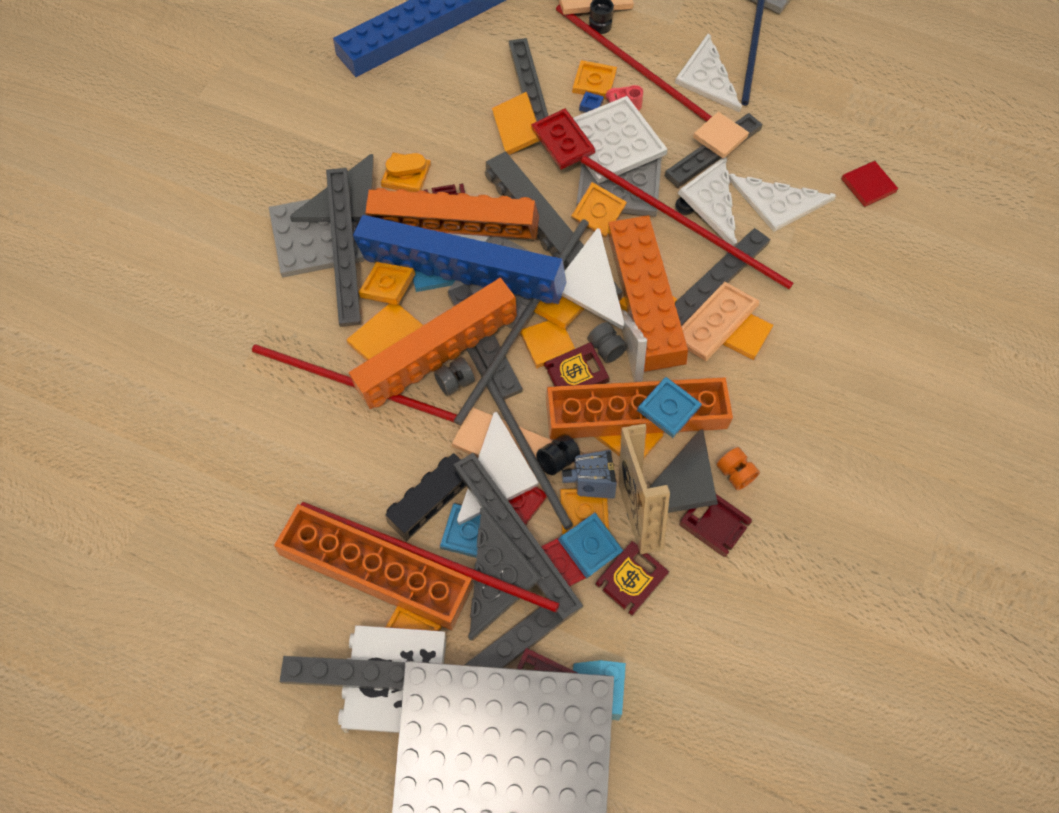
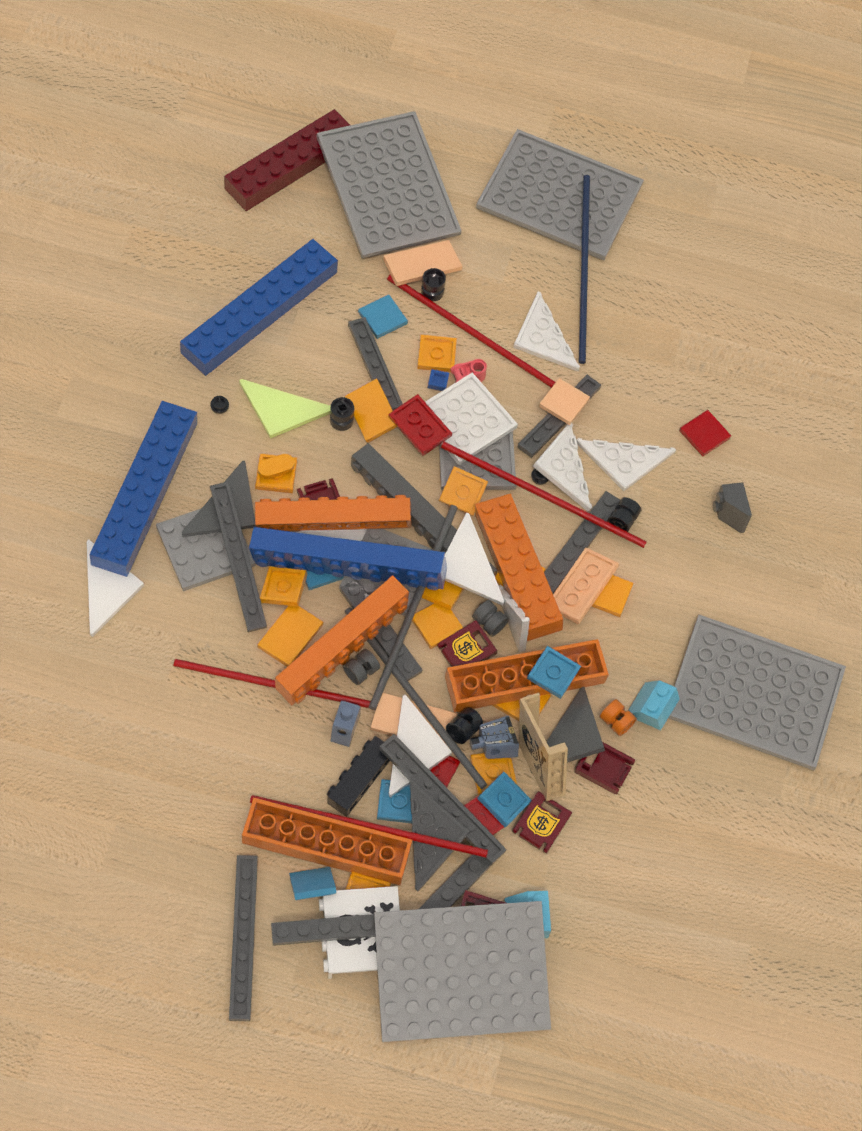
camera: 15 degrees left, 0 degrees up
(203, 264) = (107, 593): none -> white tile
(252, 671) = (243, 938): none -> dark grey plate
(261, 172) = (143, 489): none -> blue brick
(346, 614) = (312, 883): none -> dark azure tile
(362, 102) = (219, 404): none -> black plate
(425, 115) = (281, 410): none -> yellowish green tile
(426, 431) = (345, 720): none -> sand blue torso
(484, 122) = (342, 414): none -> black wheel
(545, 41) = (383, 316): none -> dark azure tile
(773, 251) = (625, 513): none -> black wheel
(783, 458) = (655, 703): none -> medium azure slope
(895, 256) = (733, 506): none -> dark grey slope
(904, 462) = (756, 692): none -> light grey plate

